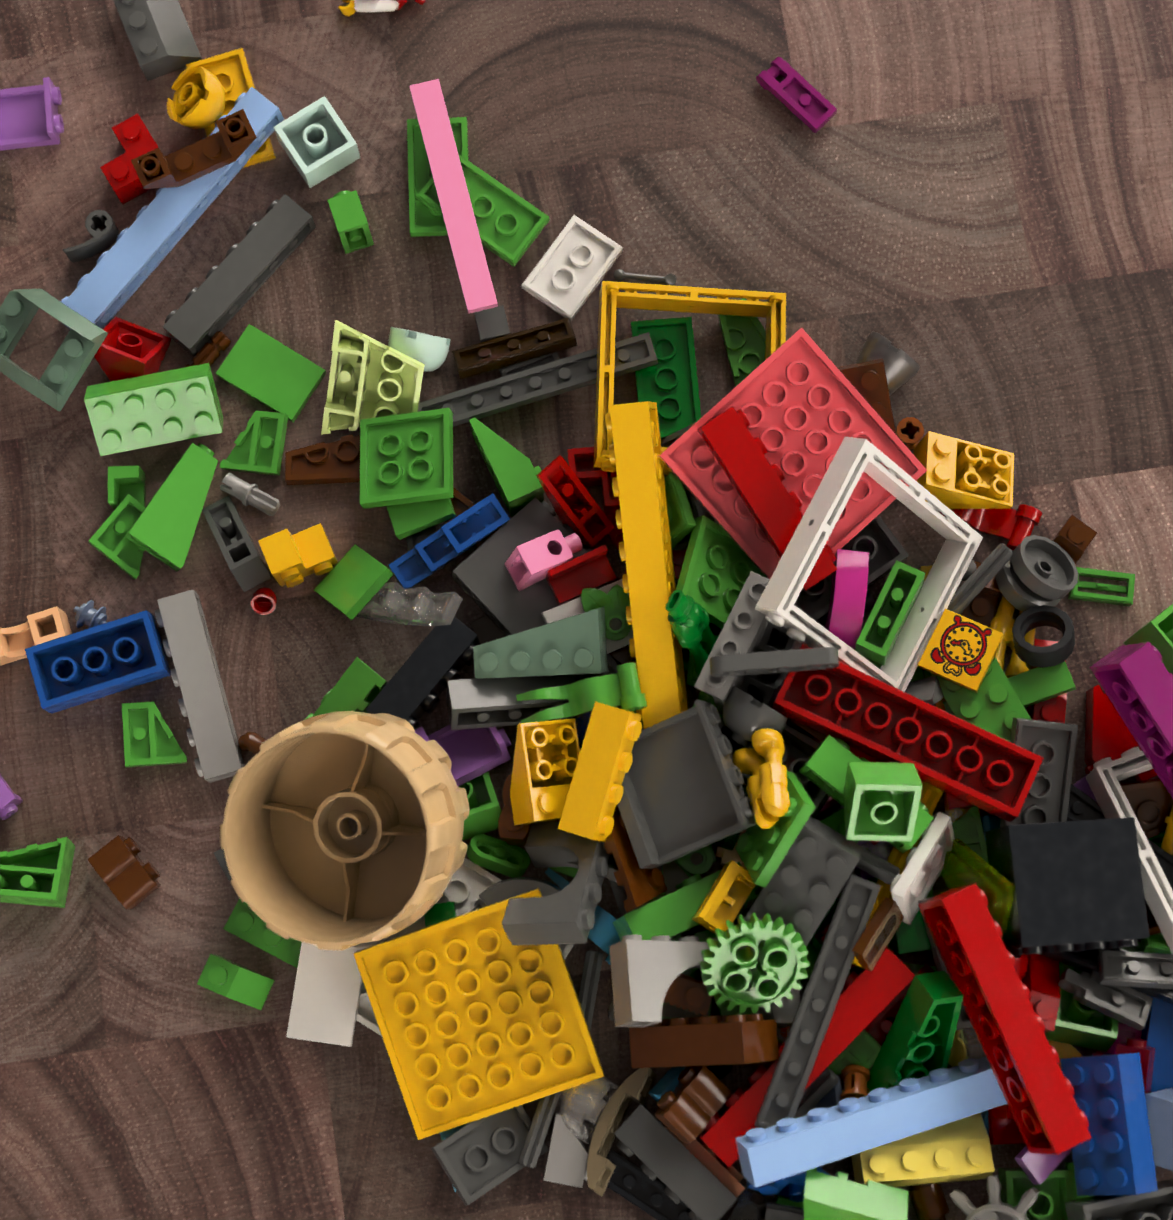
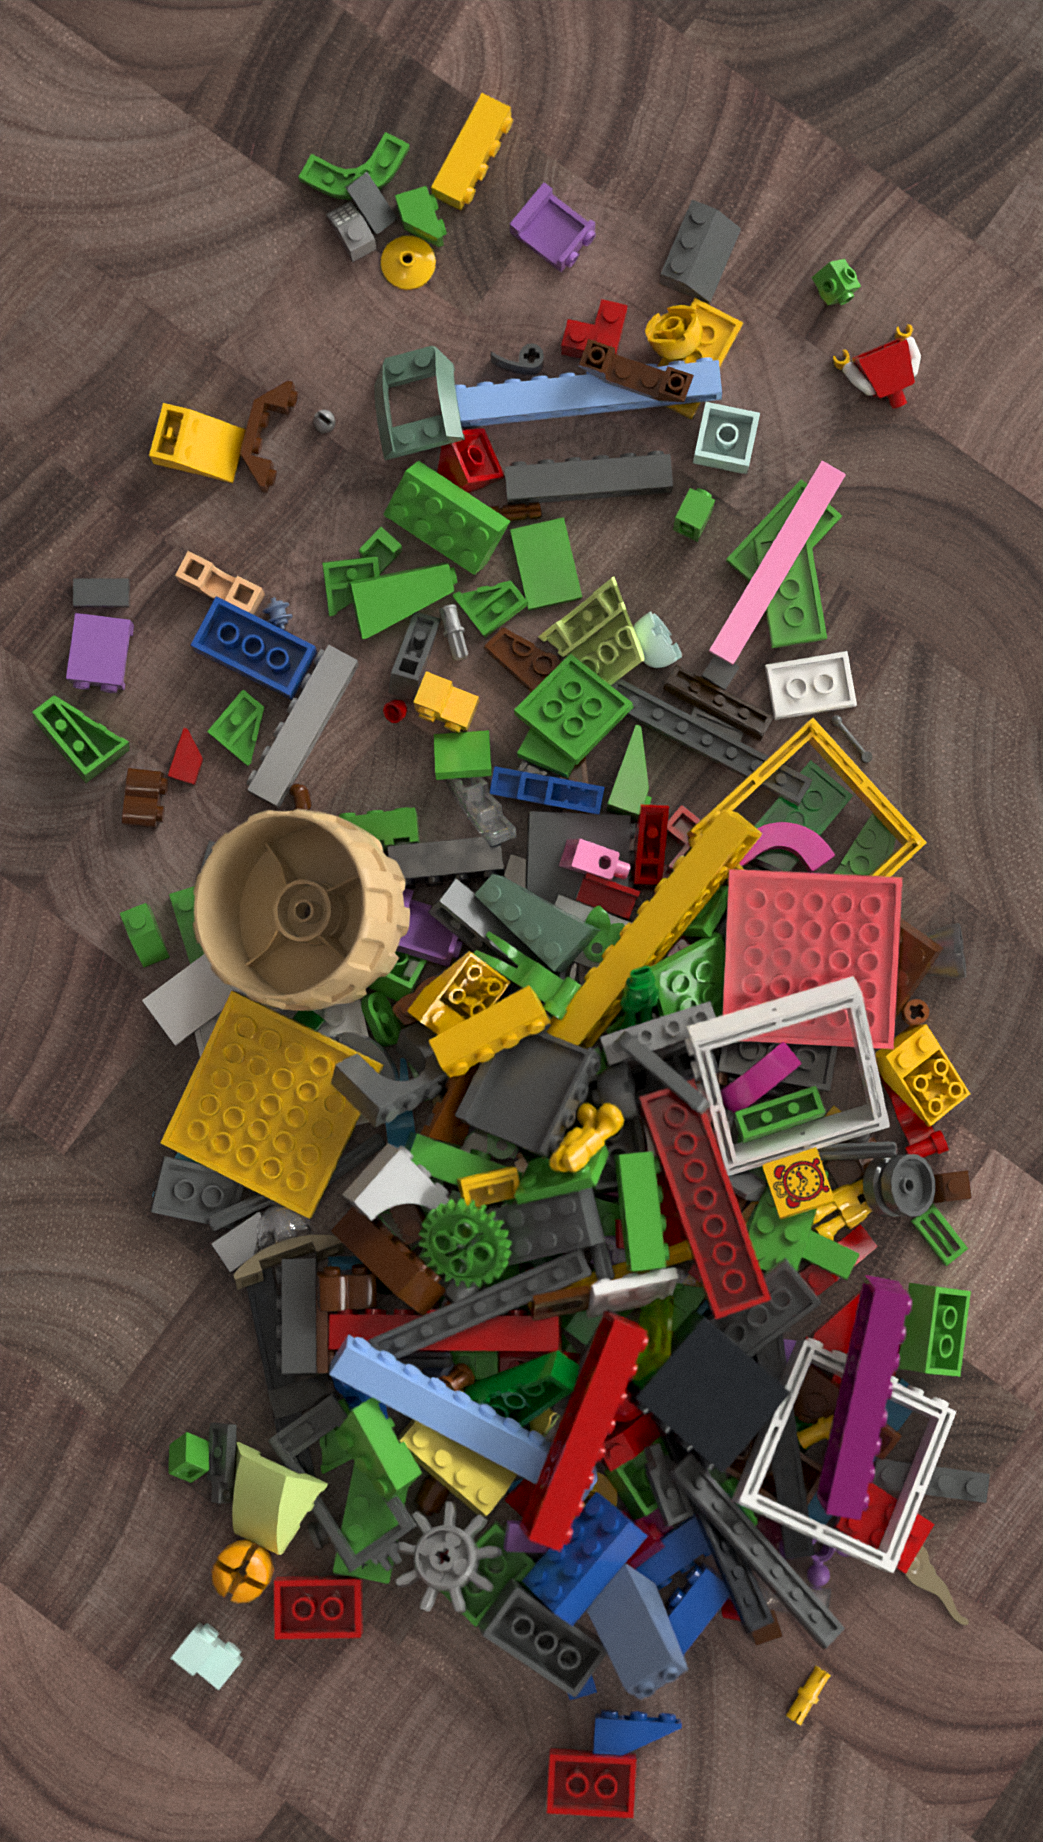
camera: 50 degrees right, 5 degrees up
(131, 807) = (186, 760): none -> red tile
(687, 388) = (797, 839): none -> dark pink arch
(760, 485) = (773, 953): red brick -> none
(881, 801) = (641, 1223): bright green slope -> none
(1048, 655) = (871, 1212): black tyre -> none

